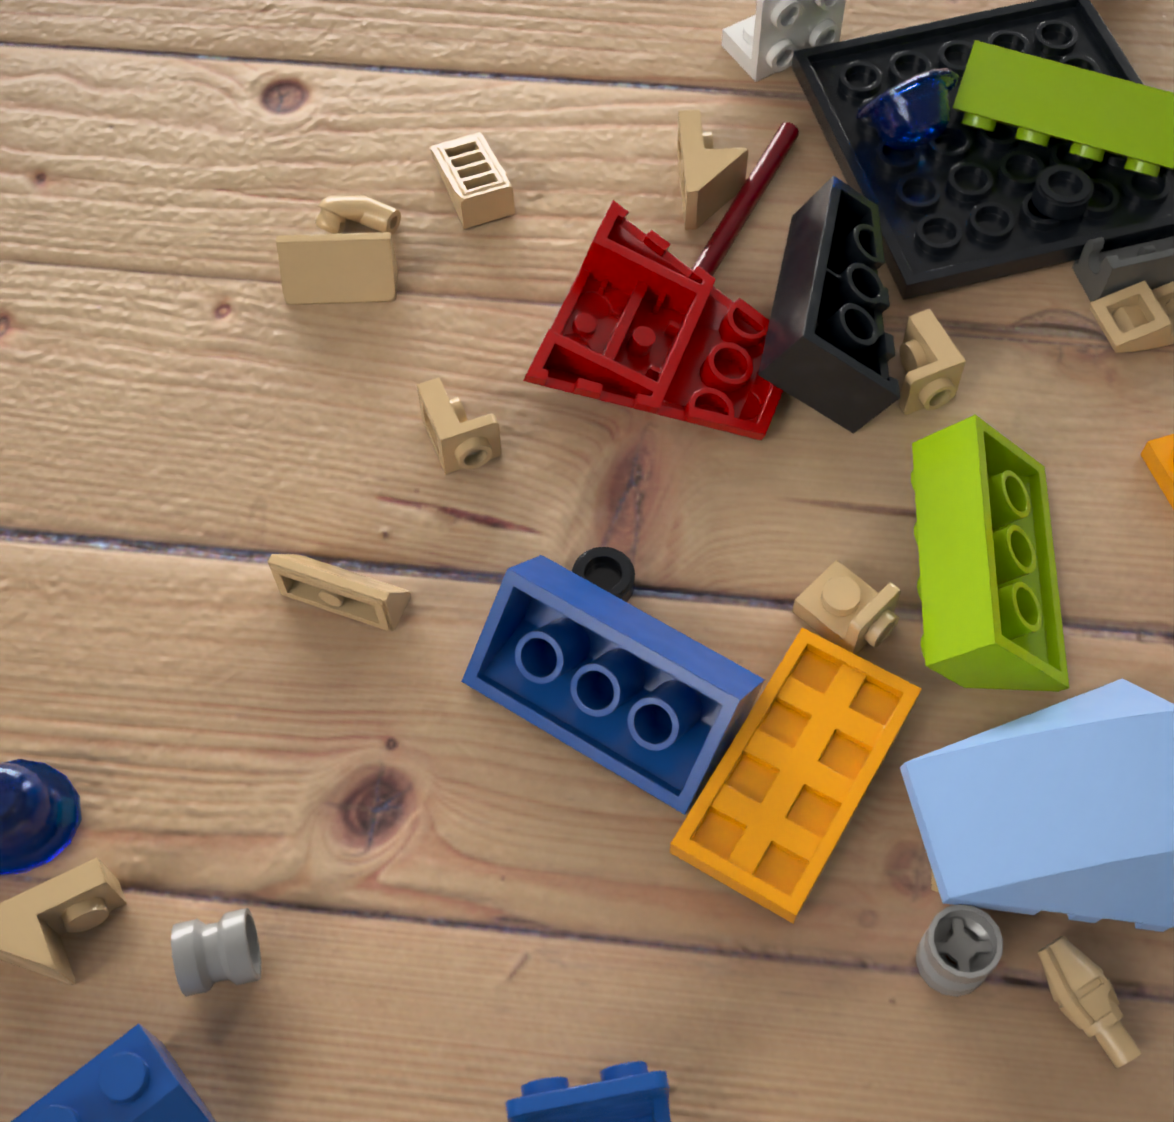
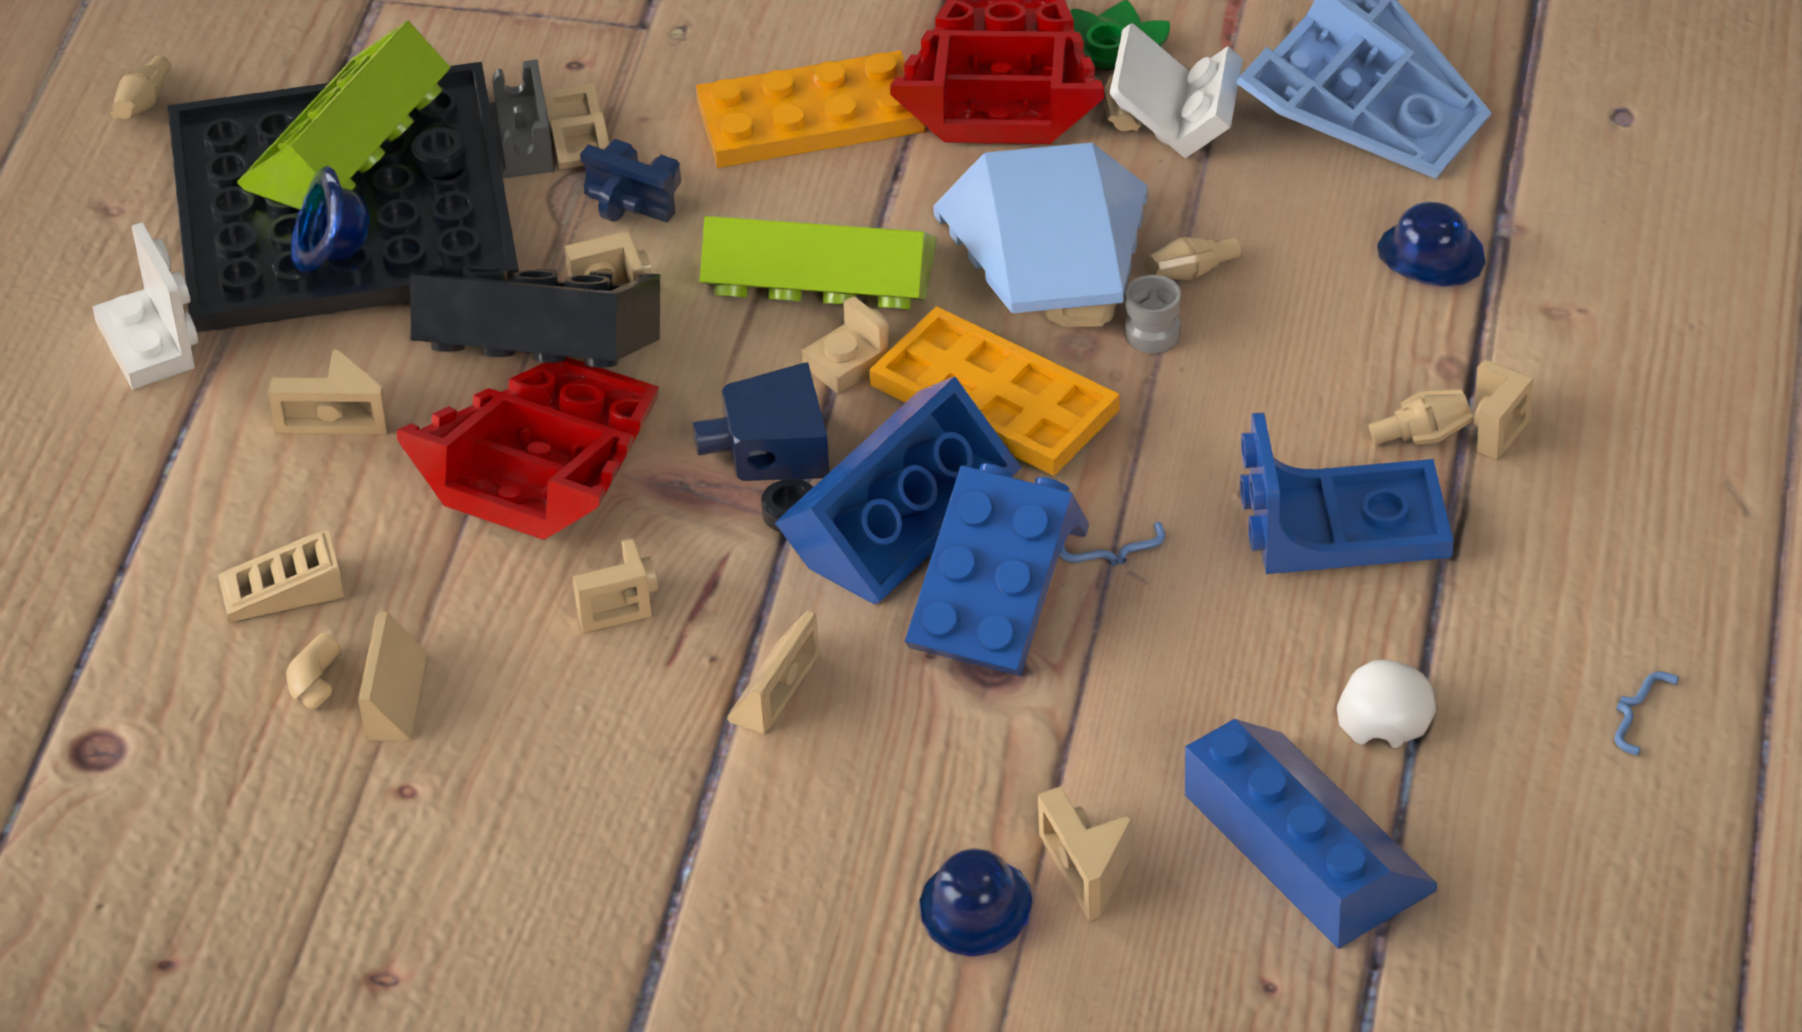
camera: 85 degrees left, 15 degrees down
(216, 952) = (1118, 738): light grey wheel -> none
(492, 787) = (993, 567): none -> blue bracket
(555, 945) = (1121, 556): none -> medium blue piece
(705, 541) = (769, 427): none -> dark blue torso
(747, 198) = (393, 391): dark red bar -> none
(1070, 388) = (629, 185): none -> dark blue hips

